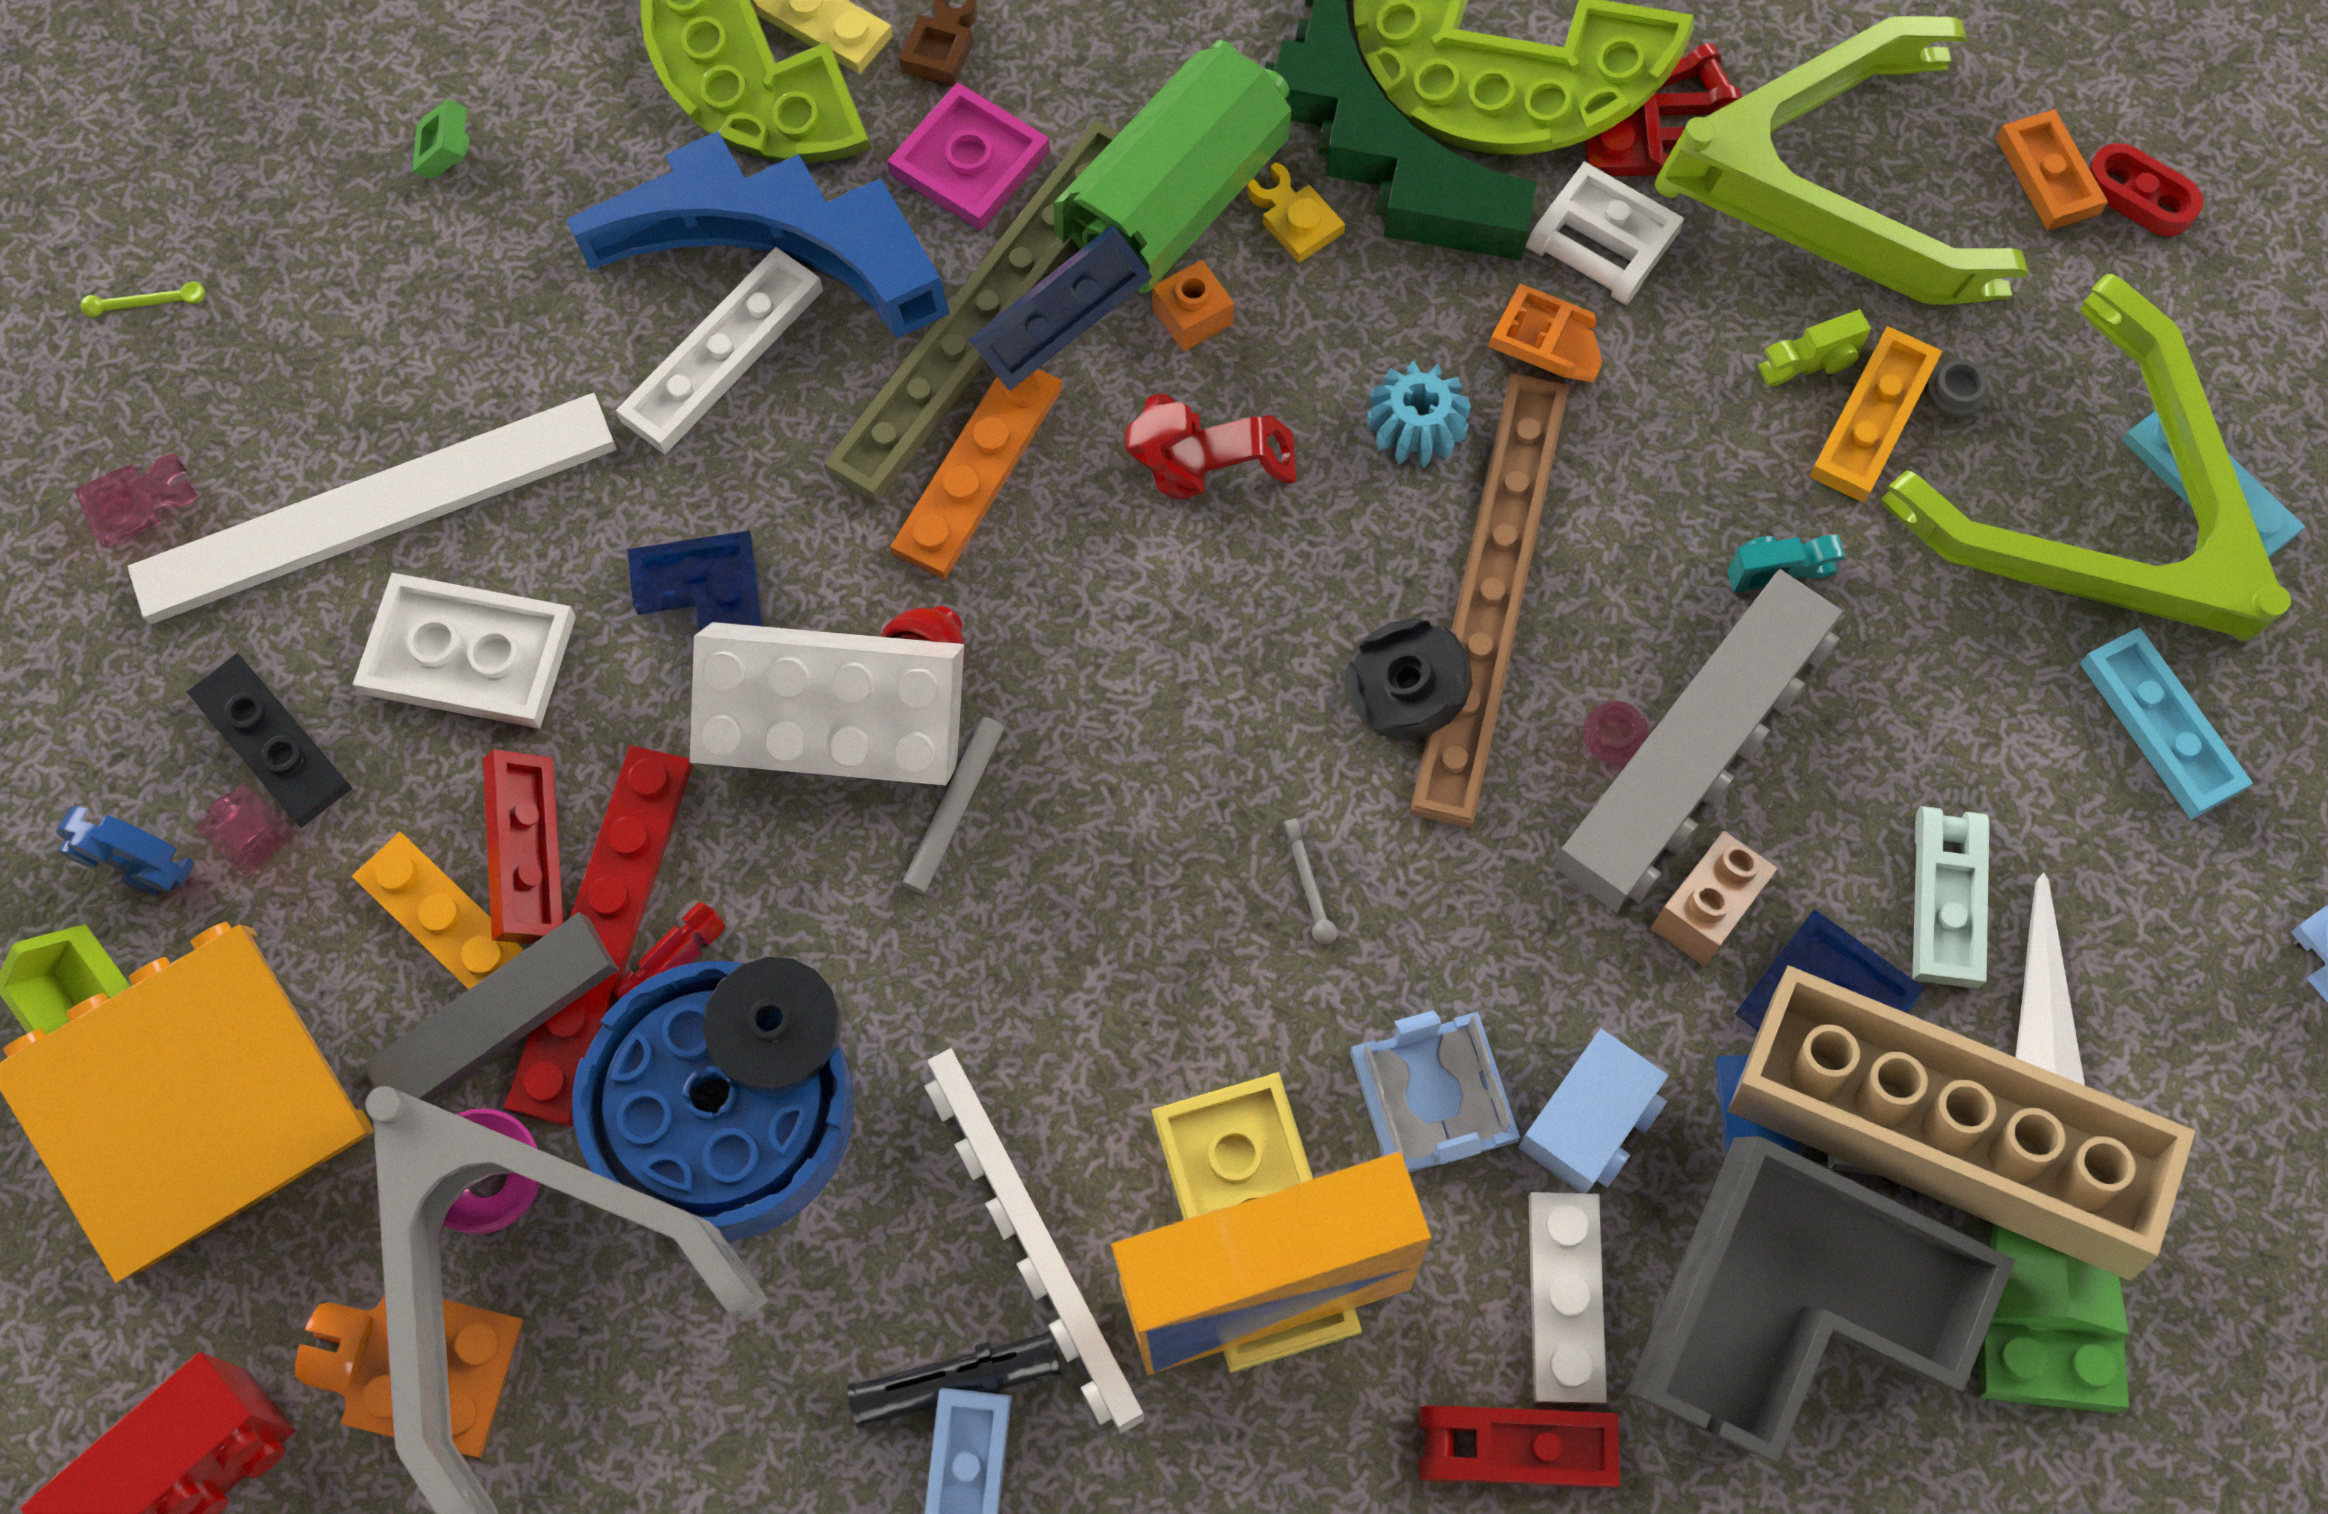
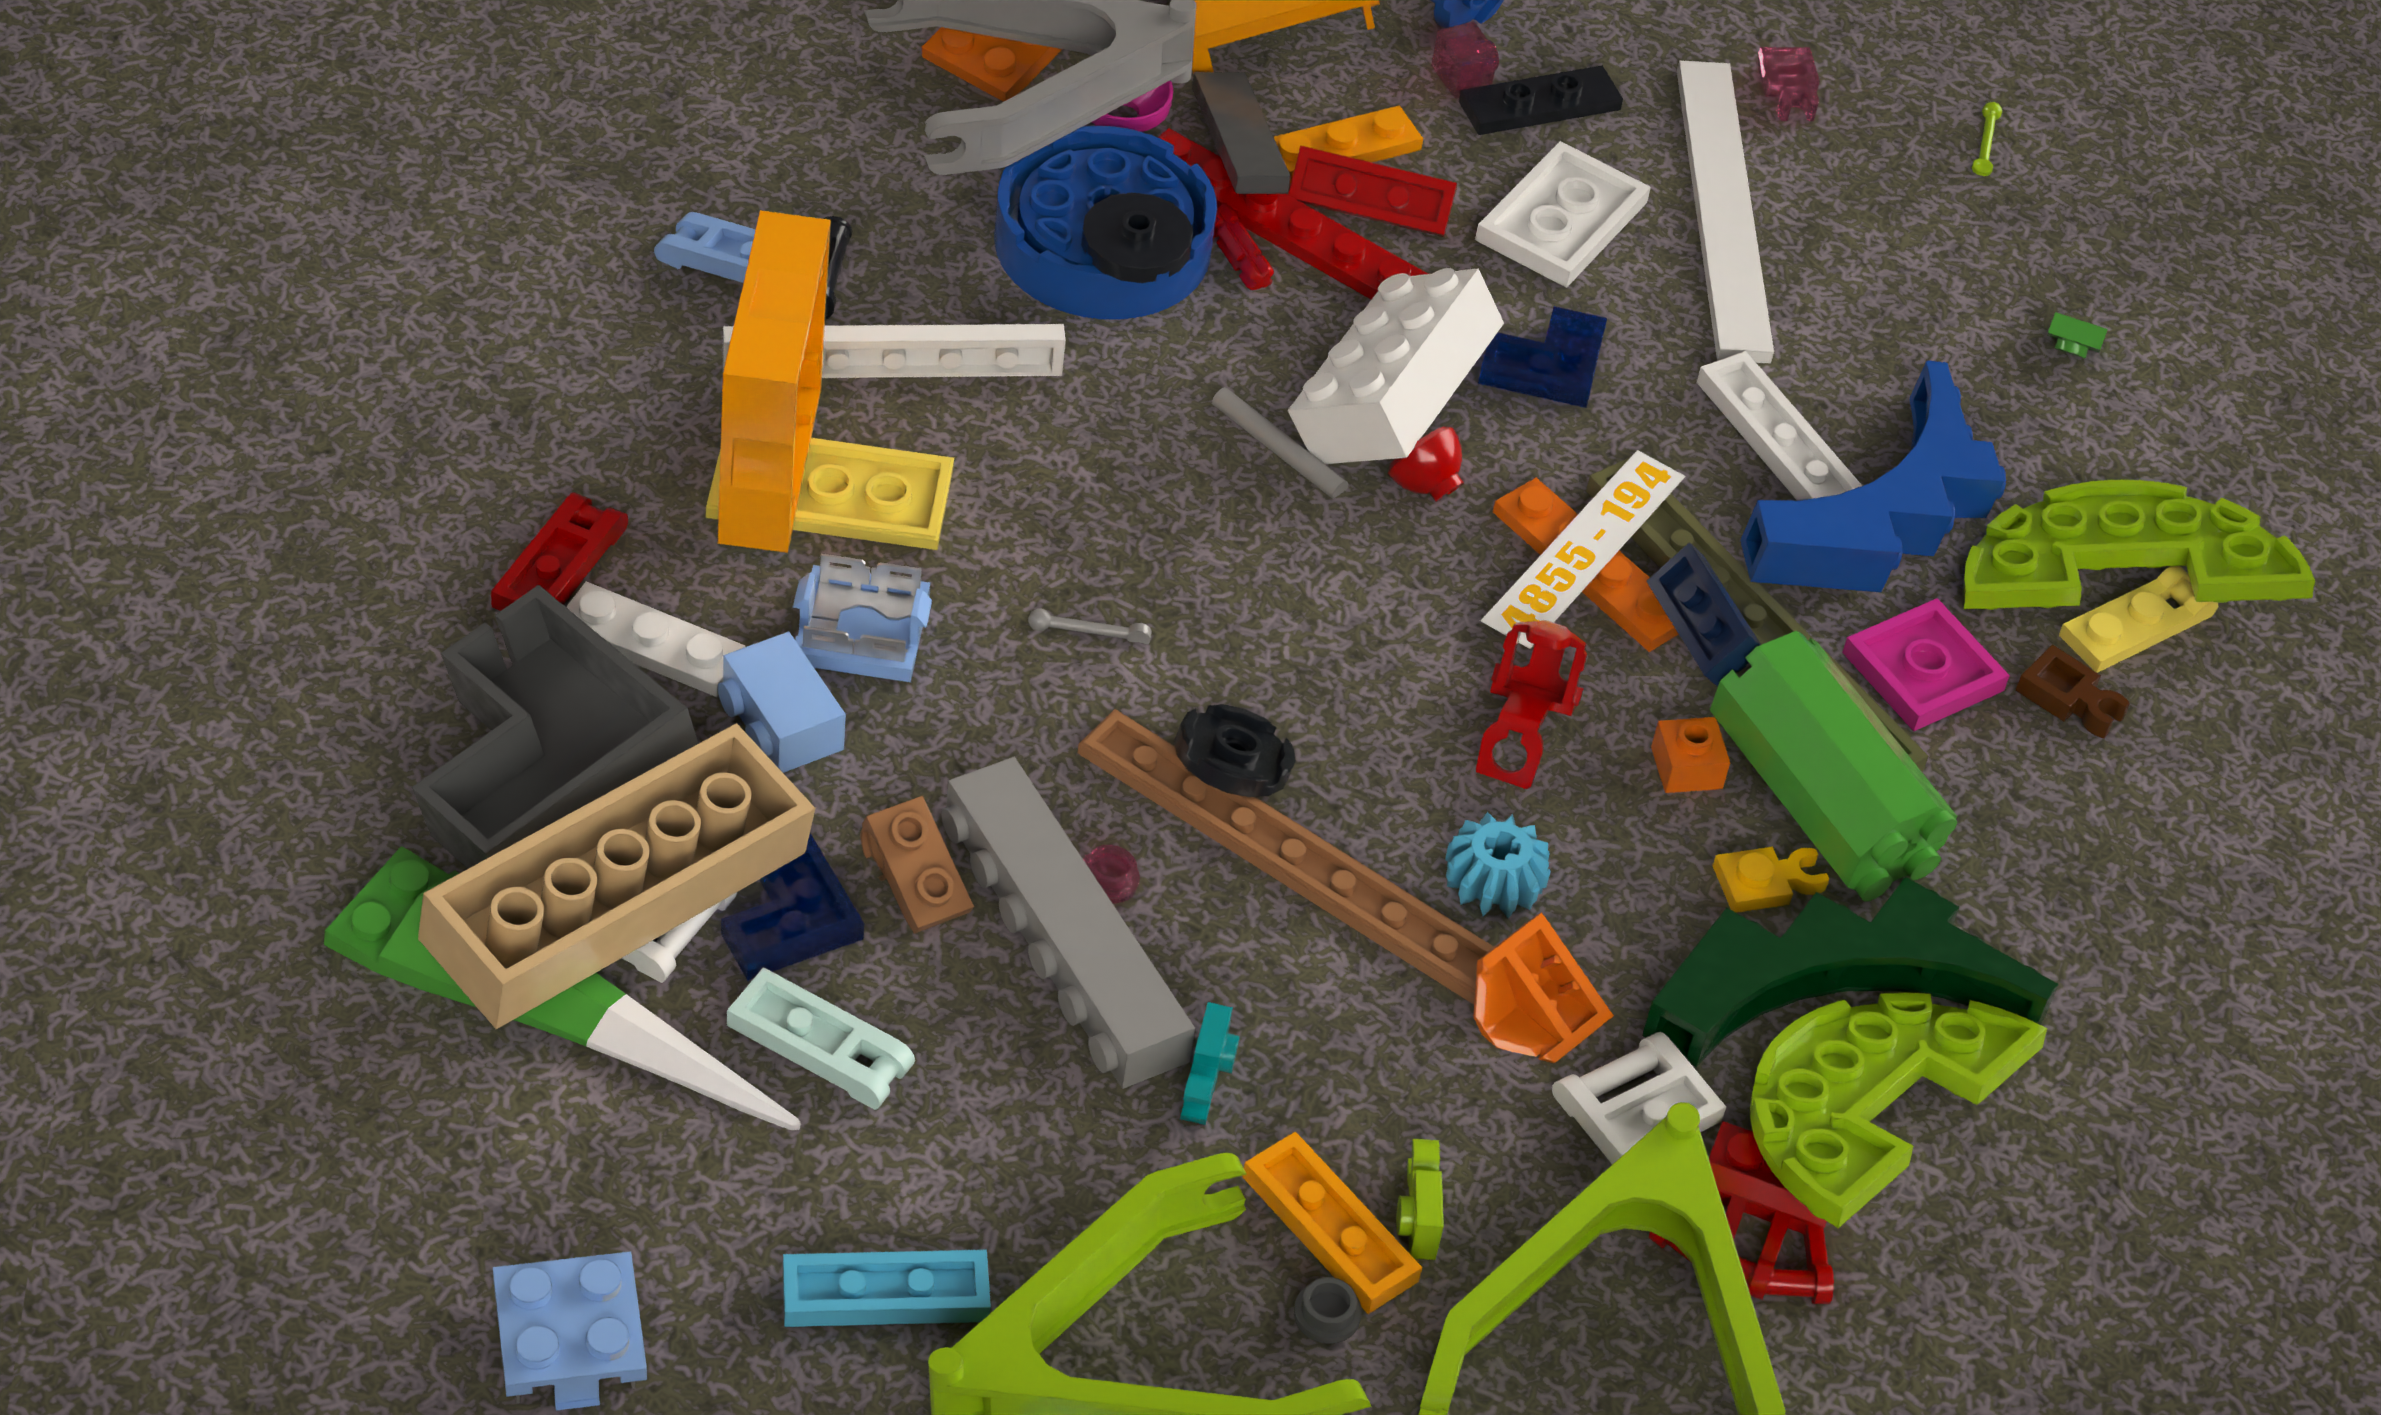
camera: 105 degrees right, 20 degrees down
(980, 465) = (1585, 545): none -> white sticker

